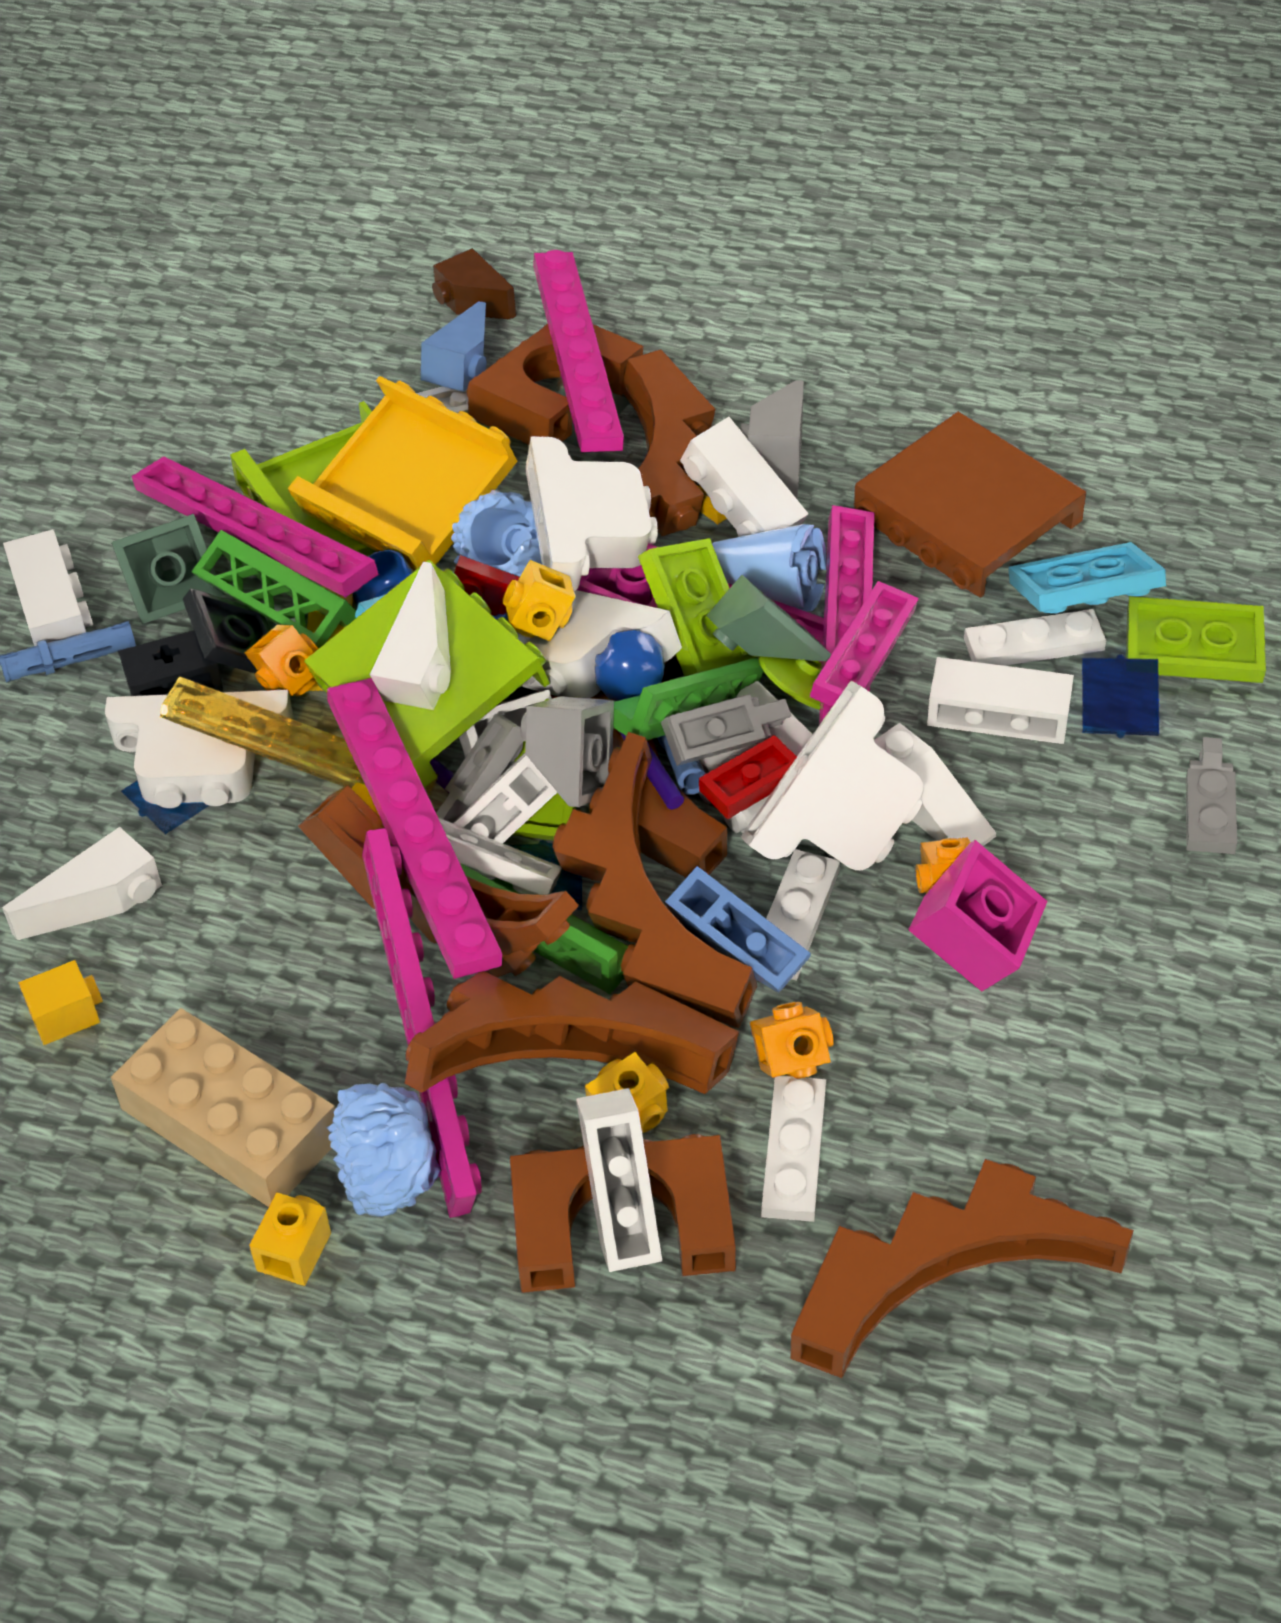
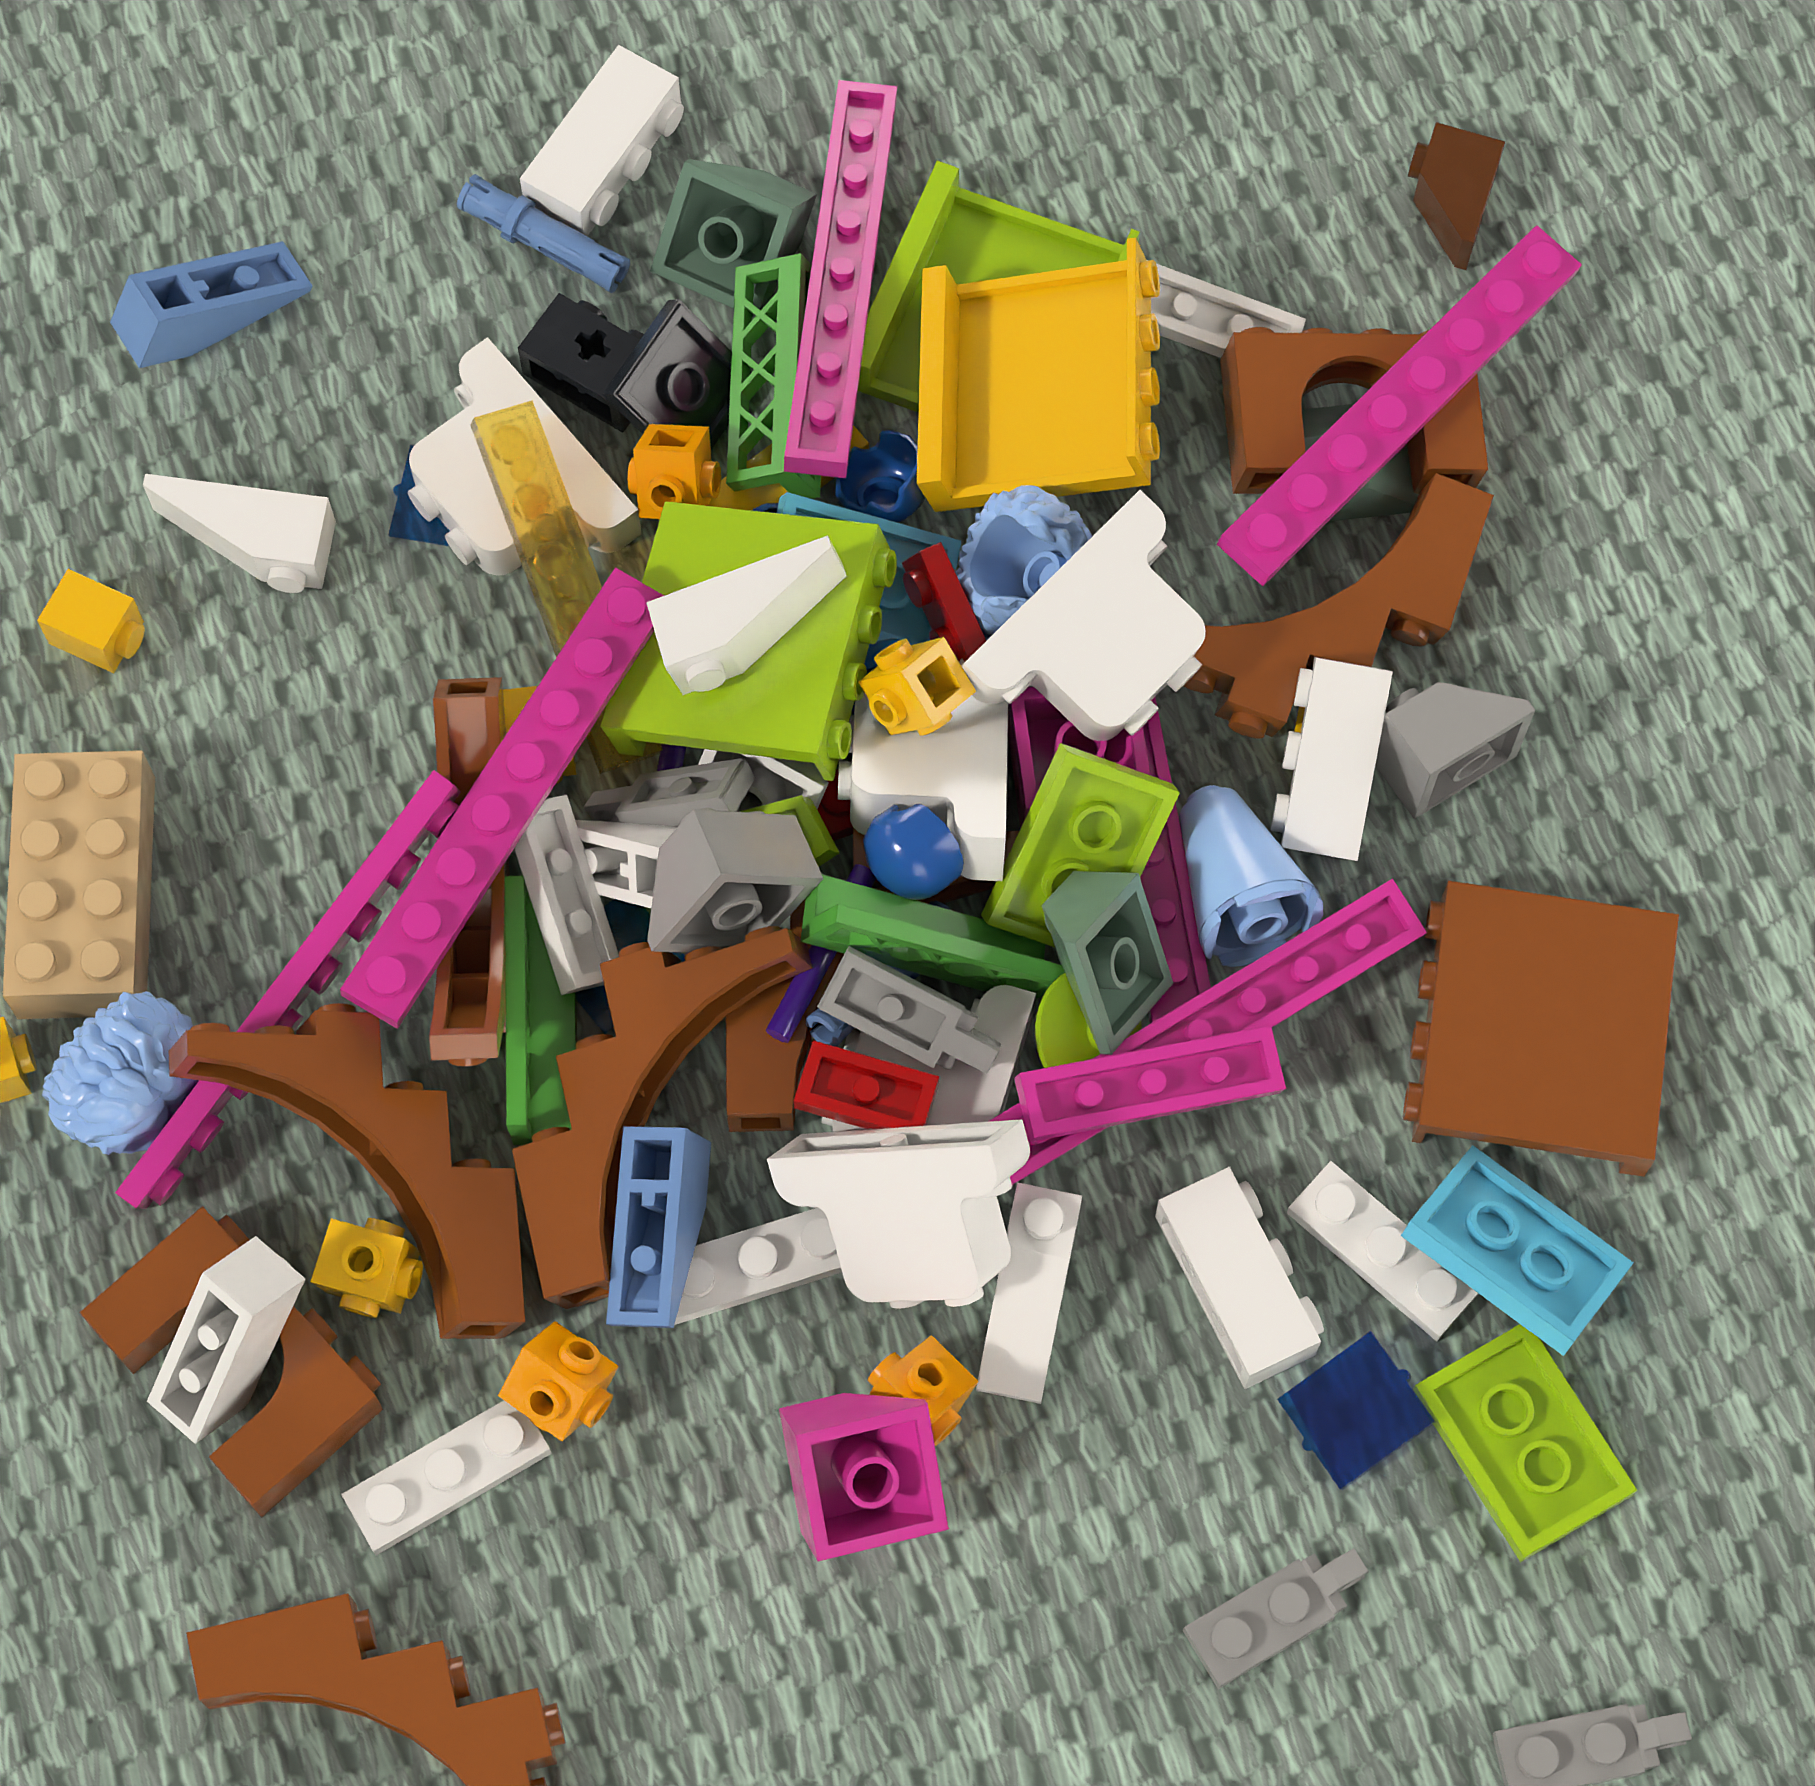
camera: 50 degrees right, 20 degrees up
(456, 350) = (1305, 270): medium blue slope -> none

